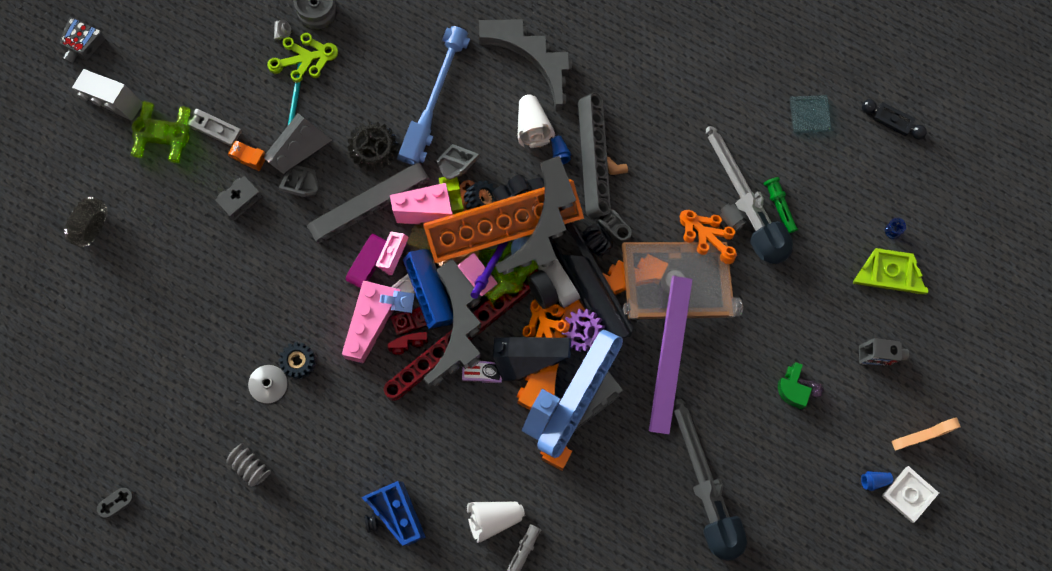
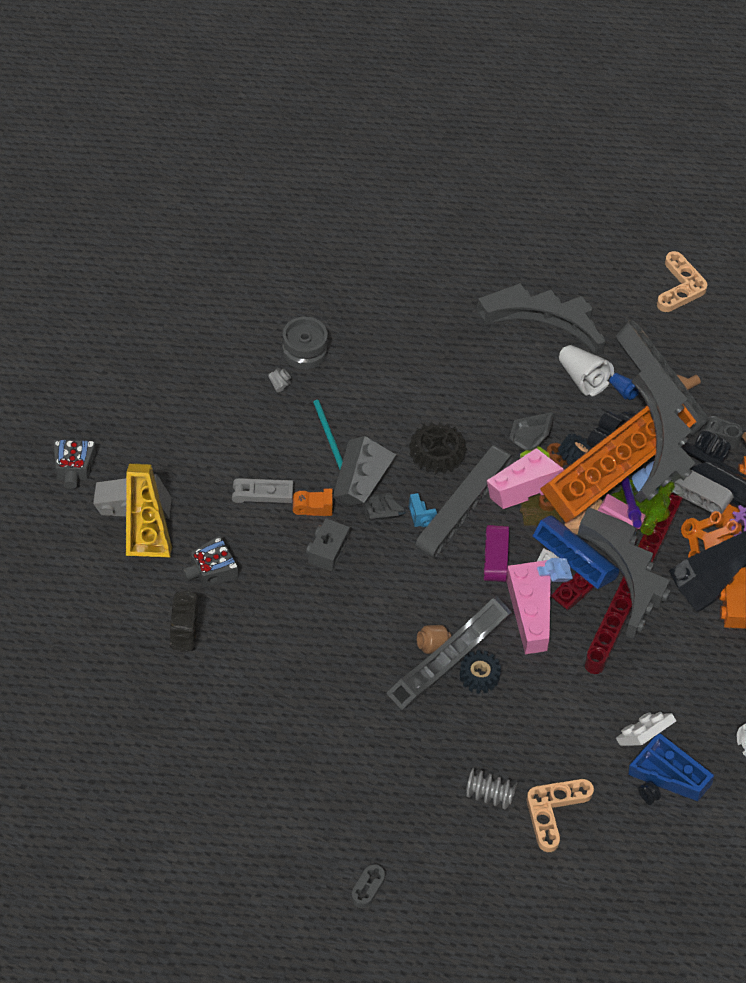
camera: 25 degrees left, 20 degrees down
(97, 116) = (144, 515): none -> yellow wedge
(139, 177) = (211, 564): none -> torso
(160, 132) = (210, 514): clear neon green piece -> none
(266, 341) = (449, 654): none -> dark grey arch
(274, 390) = (457, 716): light grey dish -> none
(275, 317) = (432, 637): none -> medium nougat head
(285, 497) = (545, 807): none -> light nougat beam
(305, 57) = (317, 394): lime plant -> none
(325, 196) = (418, 511): none -> dark azure bracket
(392, 252) = (520, 532): bright pink panel -> none
(394, 470) = (647, 728): none -> white plate
(402, 343) = (578, 614): dark red slope -> none
(419, 133) = (475, 420): medium blue bar -> none
(483, 371) = (674, 608): slope -> none
(542, 289) = (700, 496): black tyre -> none
(669, 77) = (686, 286): none -> light nougat beam

